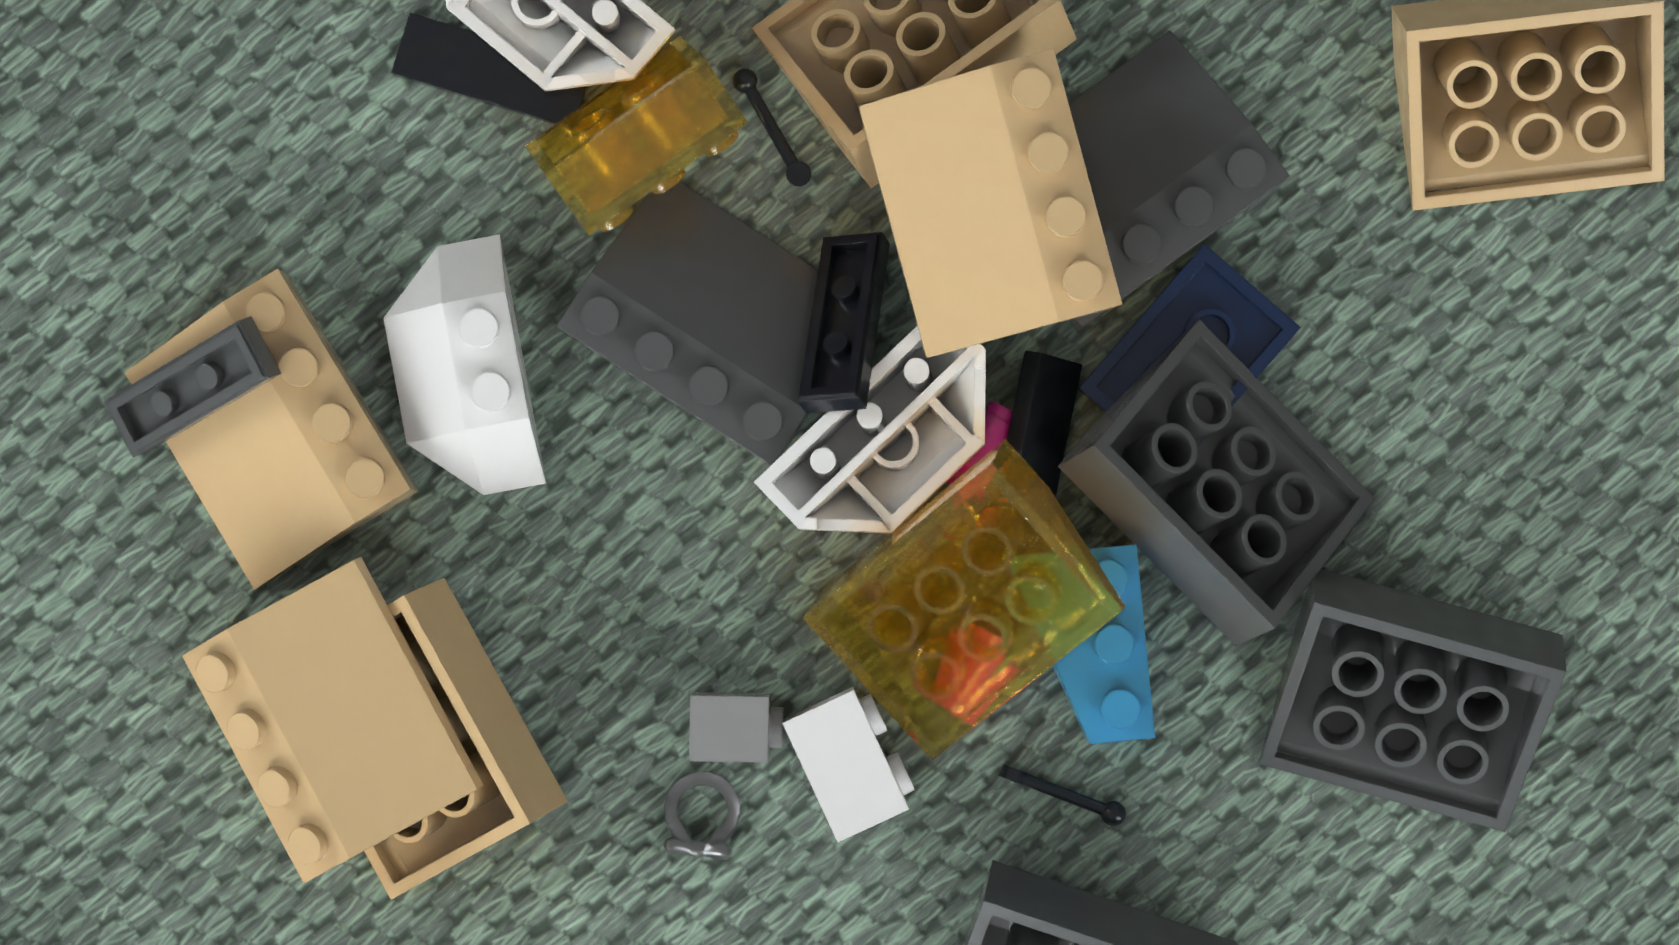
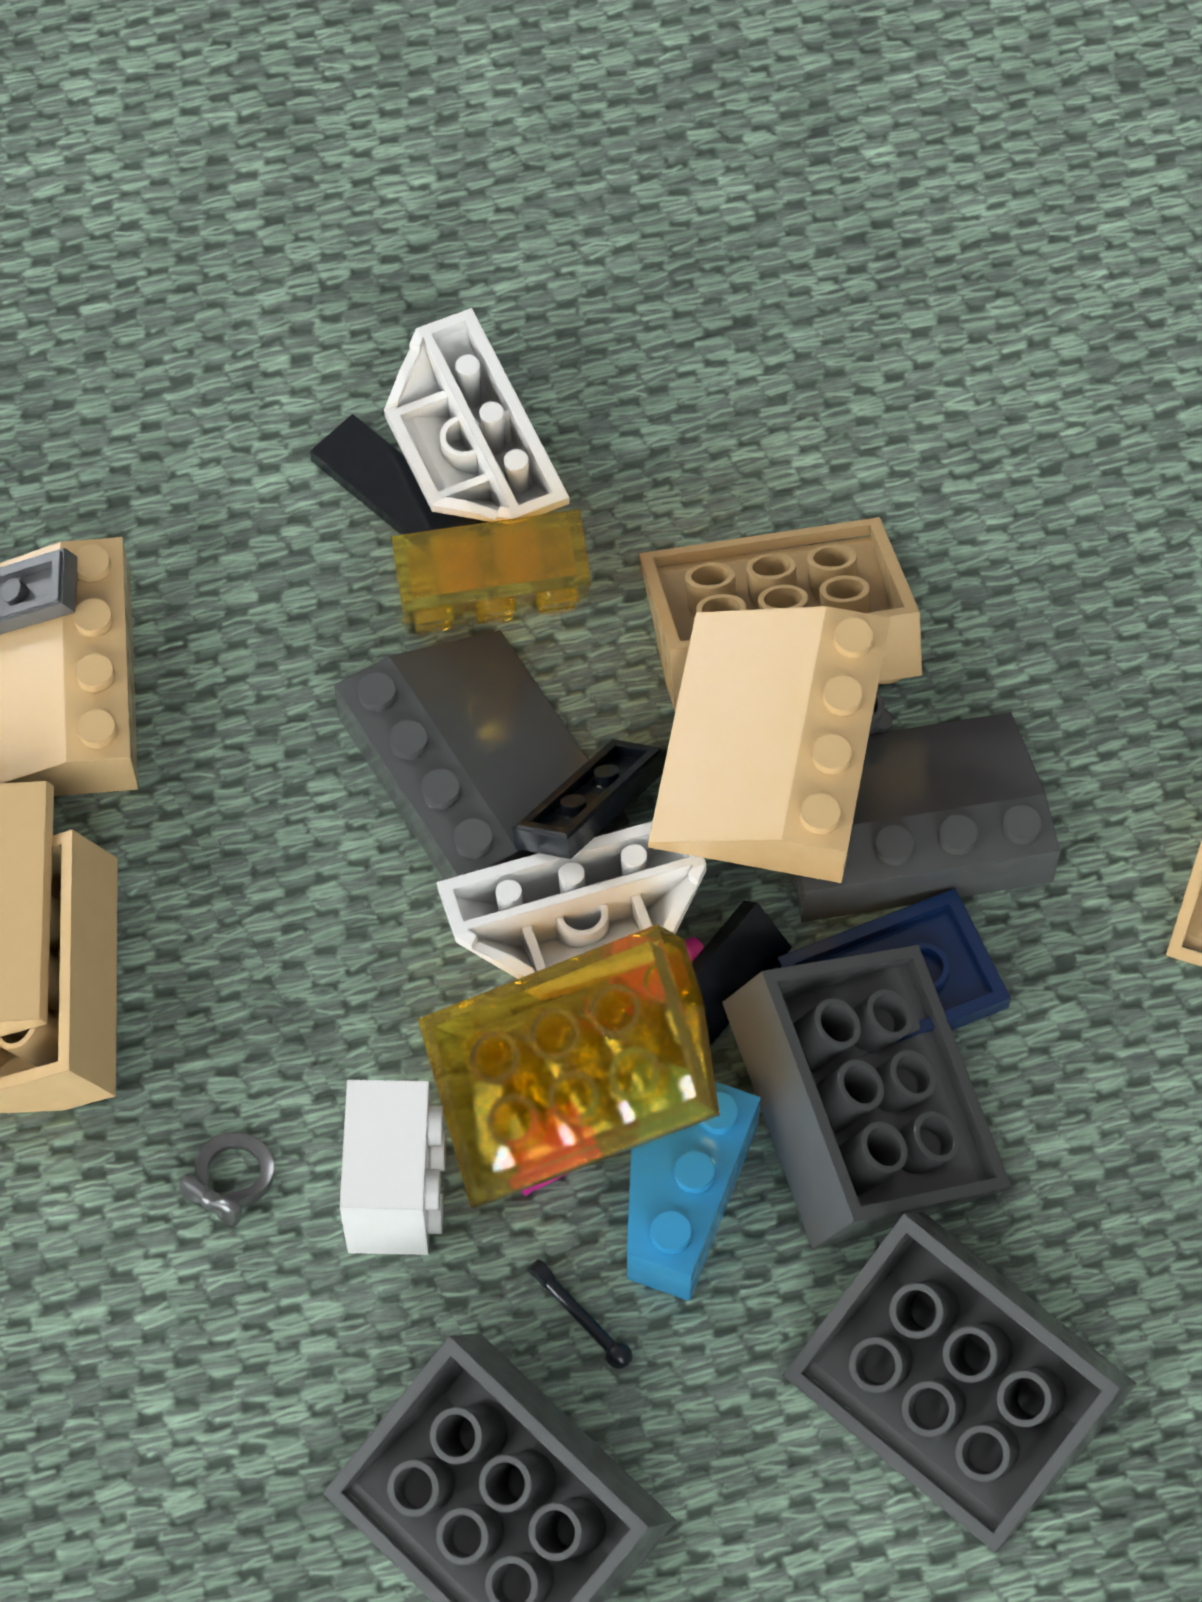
camera: 25 degrees right, 25 degrees down
(465, 369) = (235, 709): white wedge -> none
(734, 727) = (299, 1086): light grey brick -> none
(798, 172) = (617, 682): black hinge -> none

